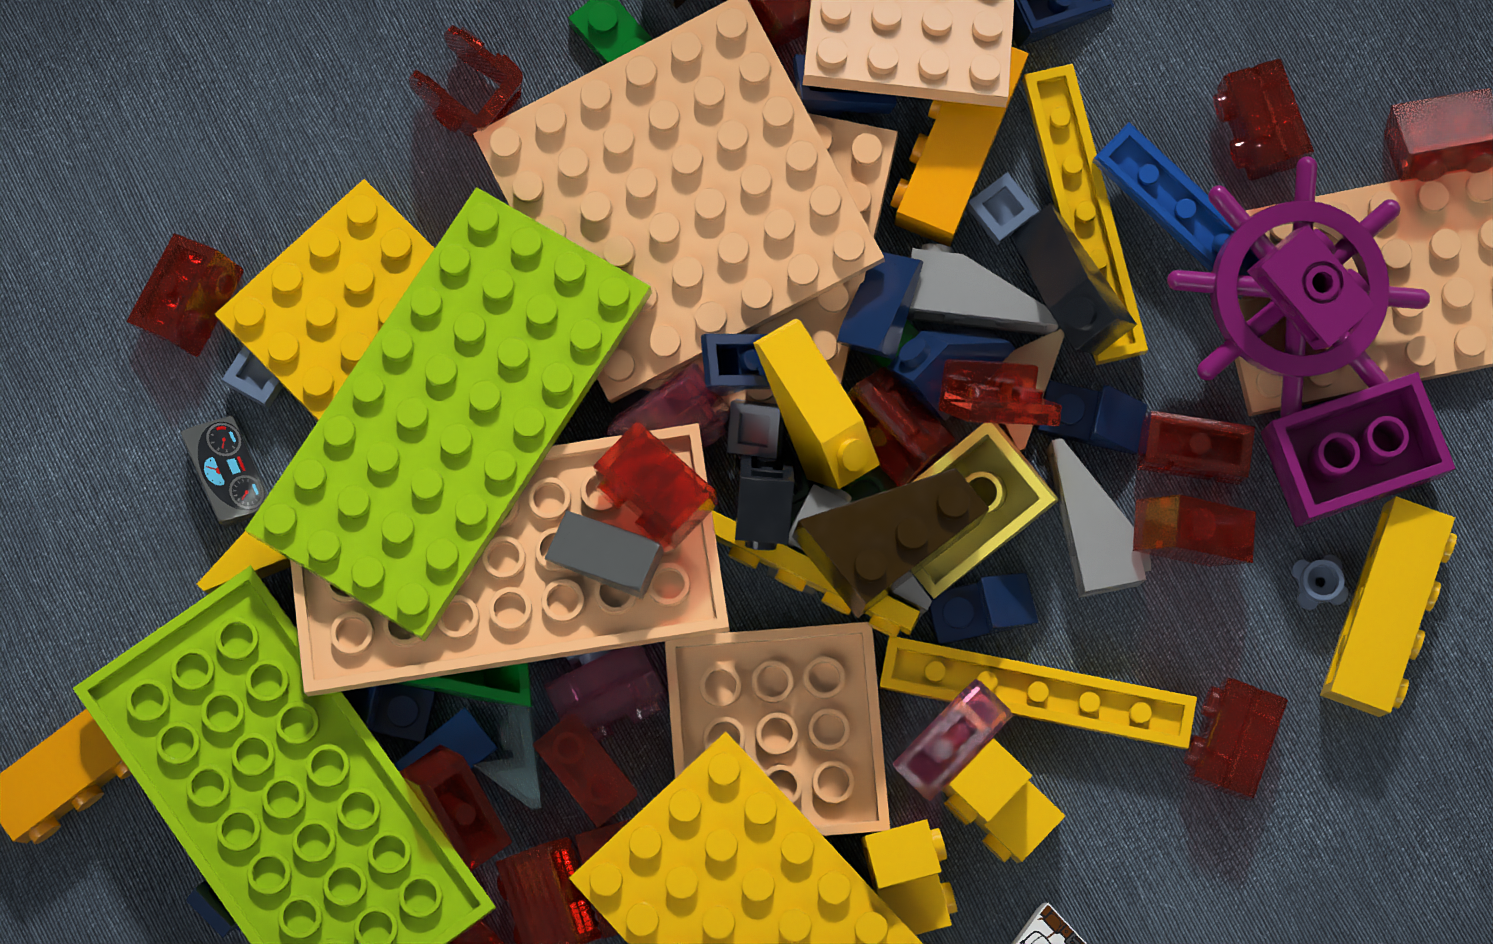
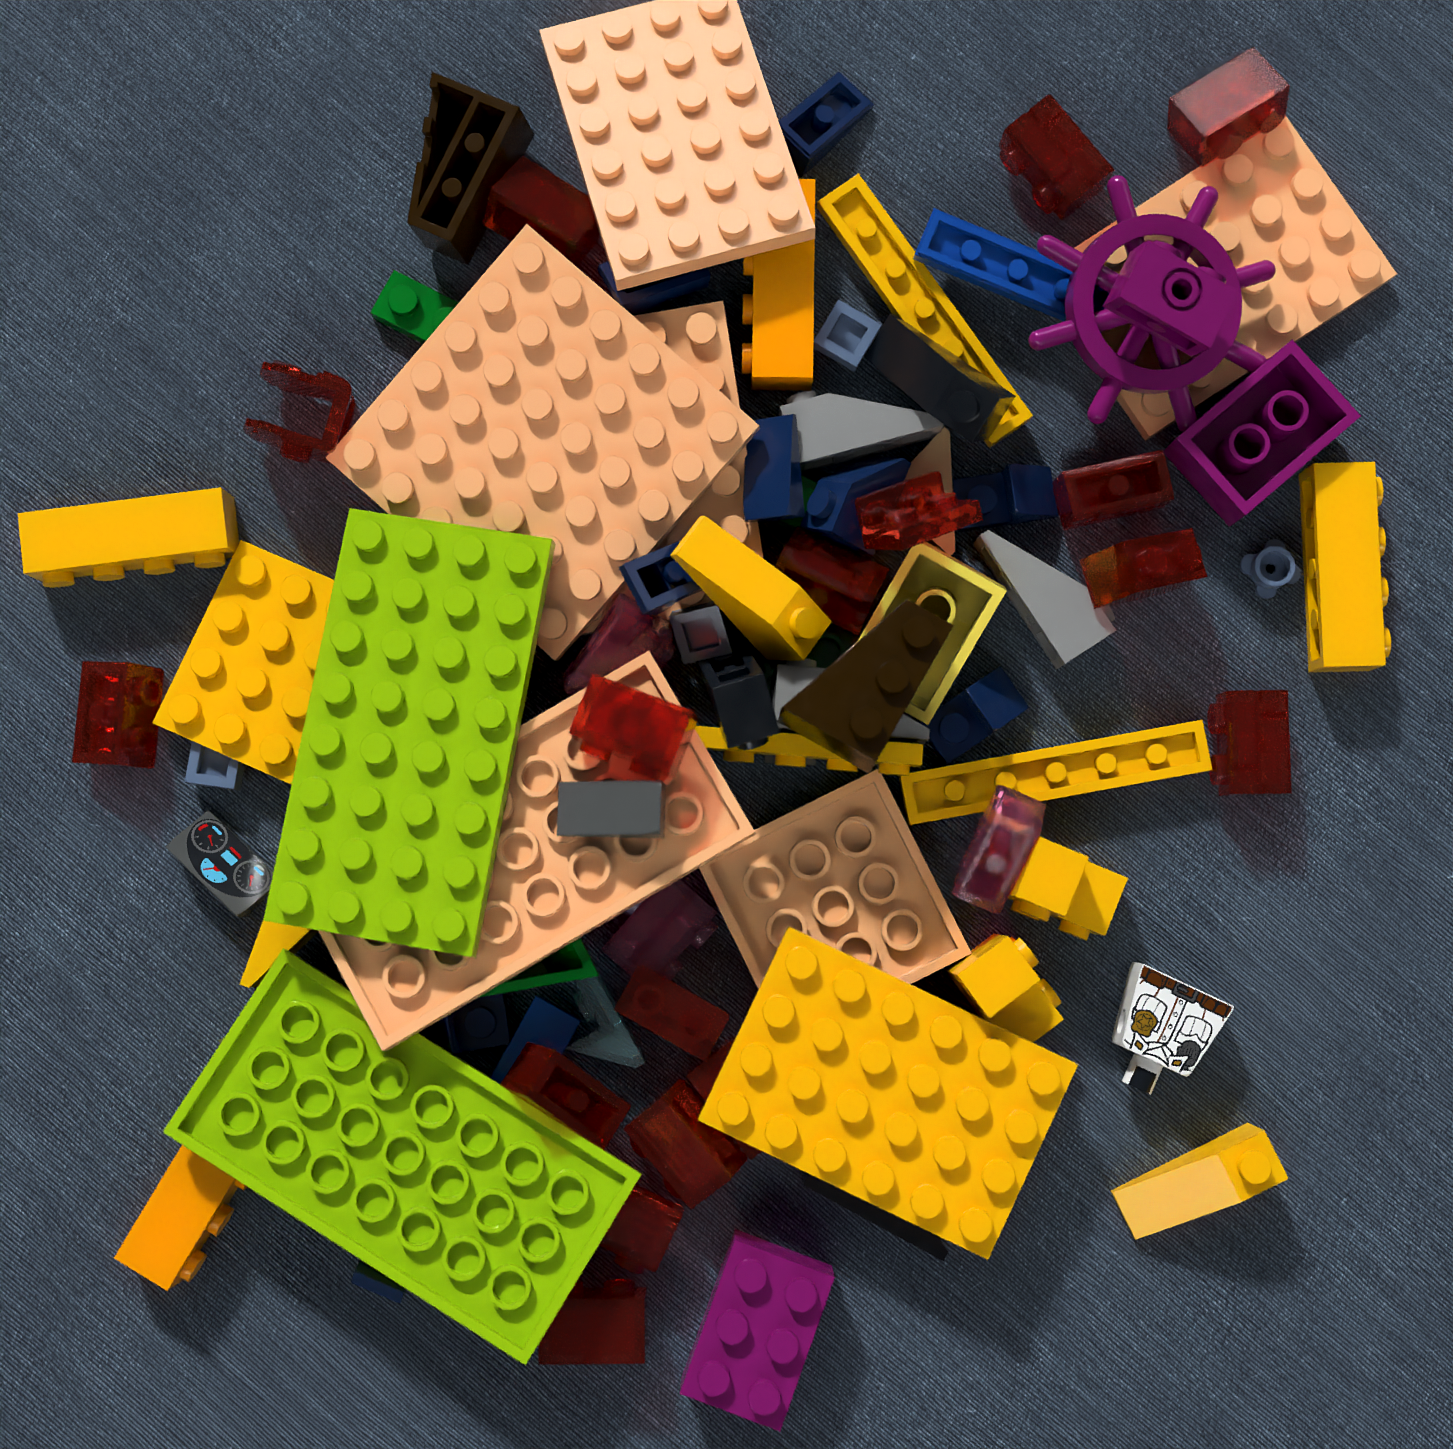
camera: 20 degrees left, 5 degrees up
(263, 135) = (128, 536): none -> yellow brick

